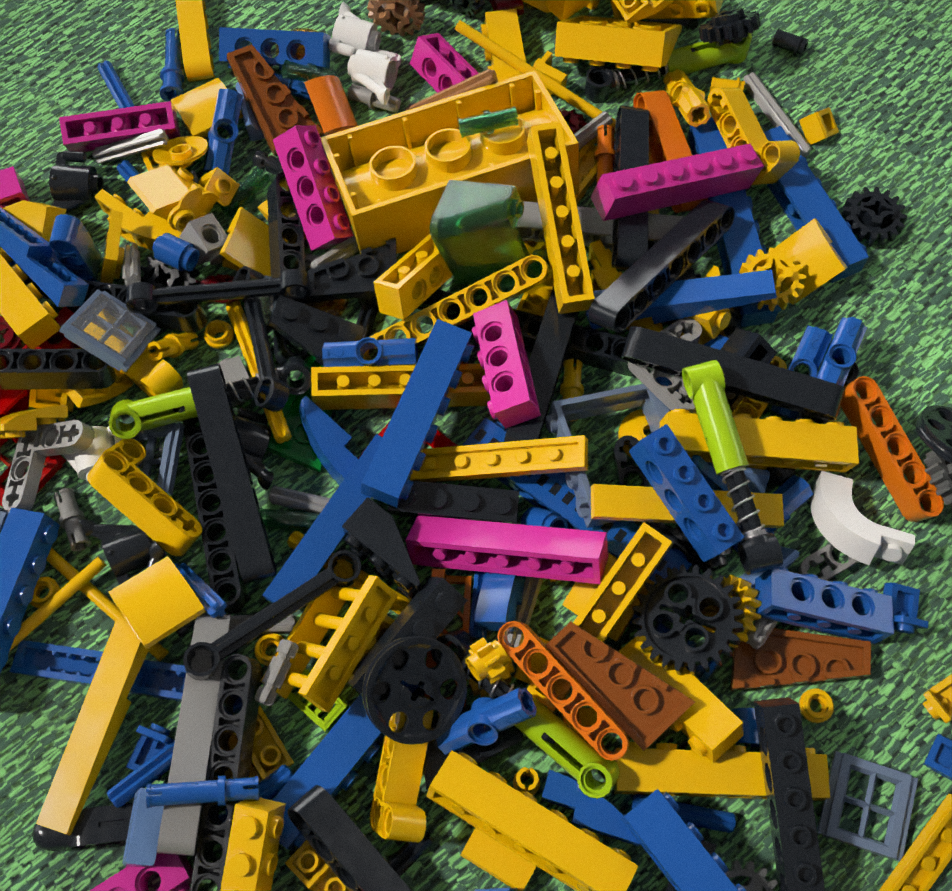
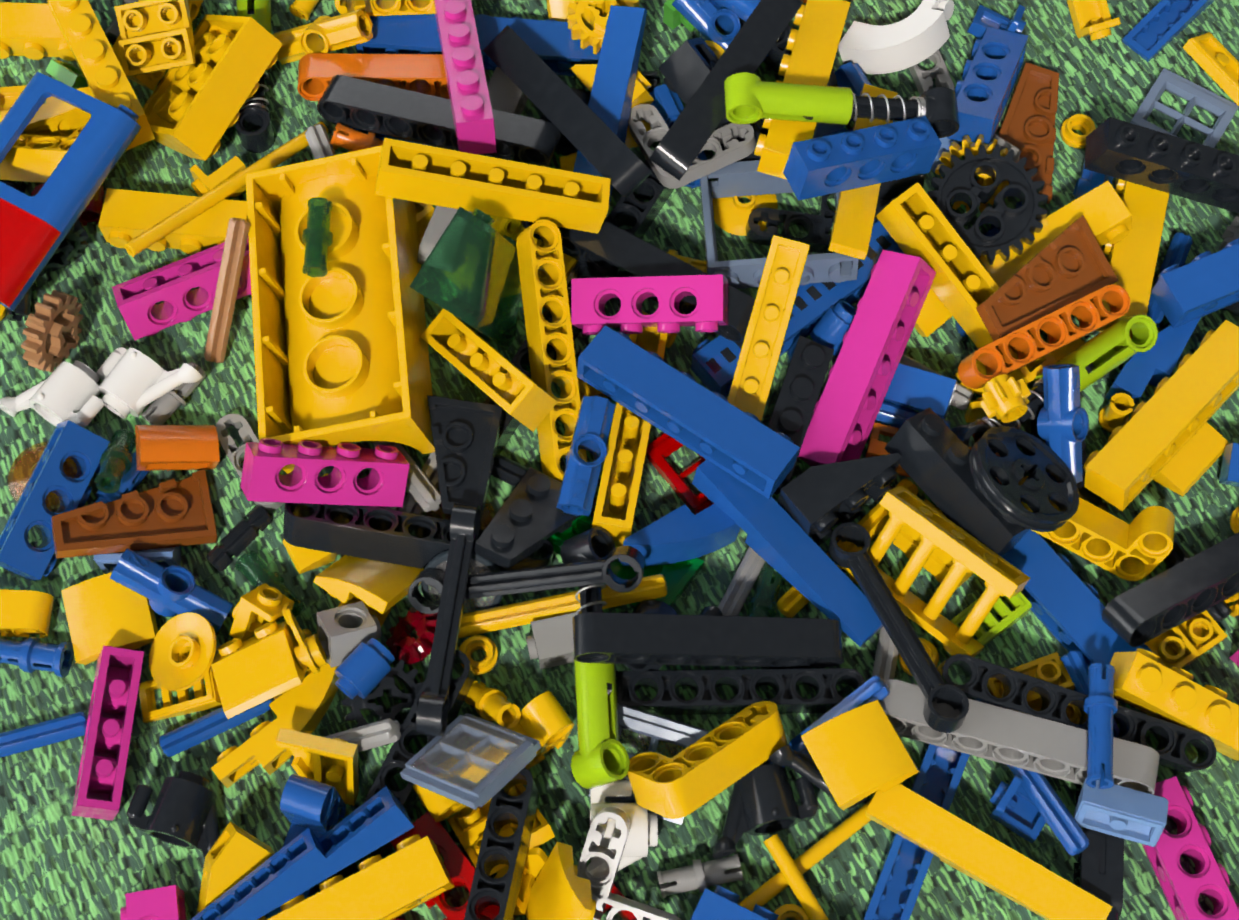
camera: 80 degrees left, 0 degrees up
(130, 146) = (144, 723): light grey axle -> none
(276, 672) = (963, 636): light grey axle -> none

